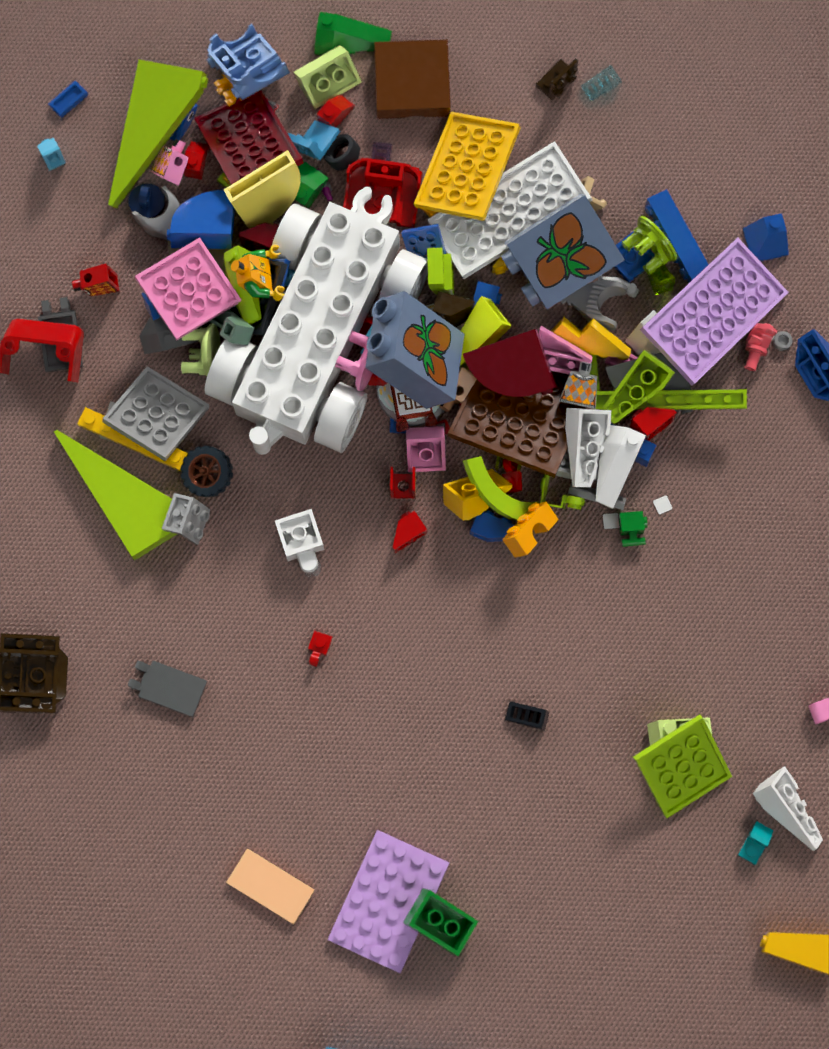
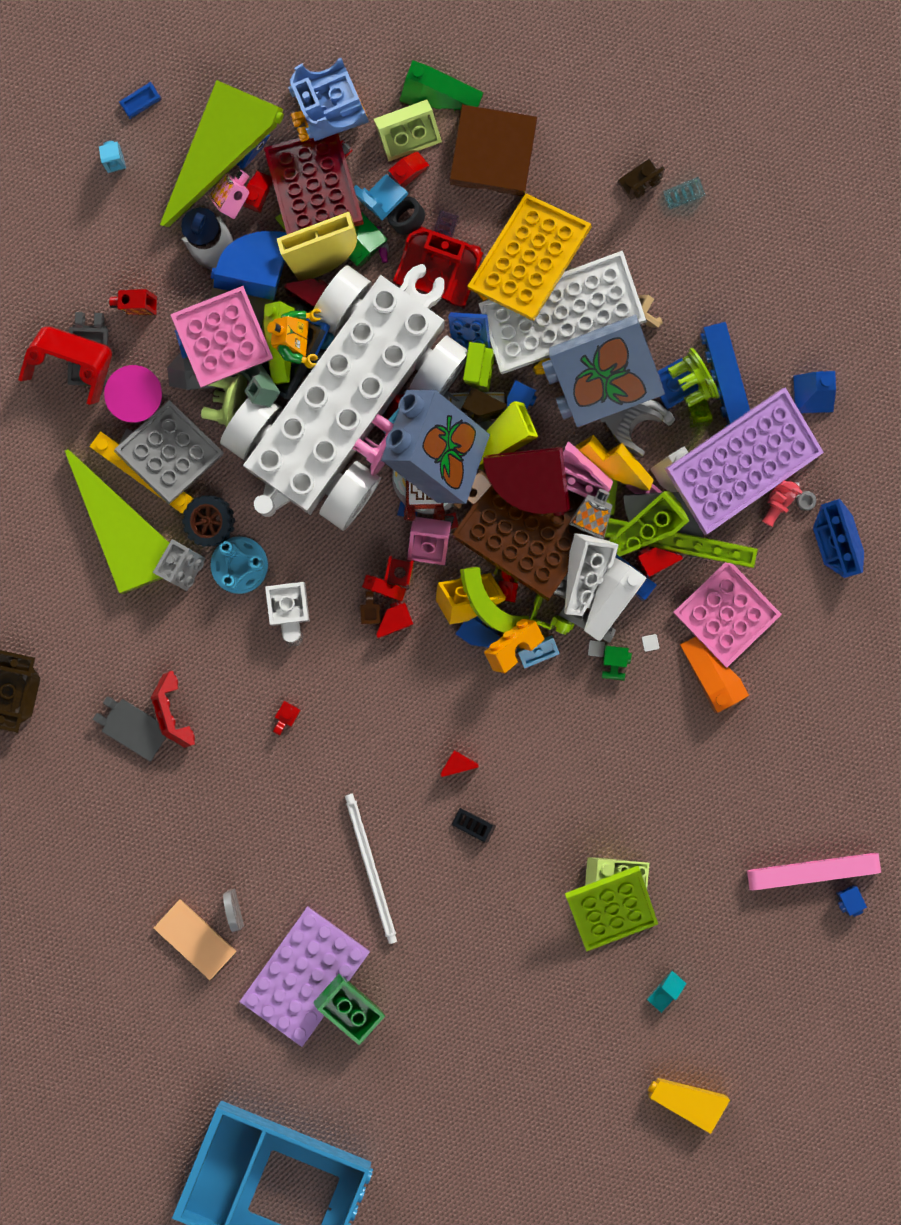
camera: 10 degrees right, 10 degrees up
(111, 364) = (133, 393): none -> dark pink piece
(218, 684) = (161, 704): none -> red slope
(244, 509) = (239, 565): none -> medium azure piece
(304, 846) = (233, 910): none -> light grey tile
(382, 528) = (370, 612): none -> reddish brown plate
(385, 498) = (382, 587): none -> red piece
(433, 779) = (370, 868): none -> white piece
(499, 657) = (458, 763): none -> red slope
(560, 531) = (544, 651): none -> dark azure plate
(730, 461) = (727, 613): none -> bright pink plate
(733, 525) = (719, 683): none -> orange wedge
(782, 802) = (700, 958): white wedge -> none

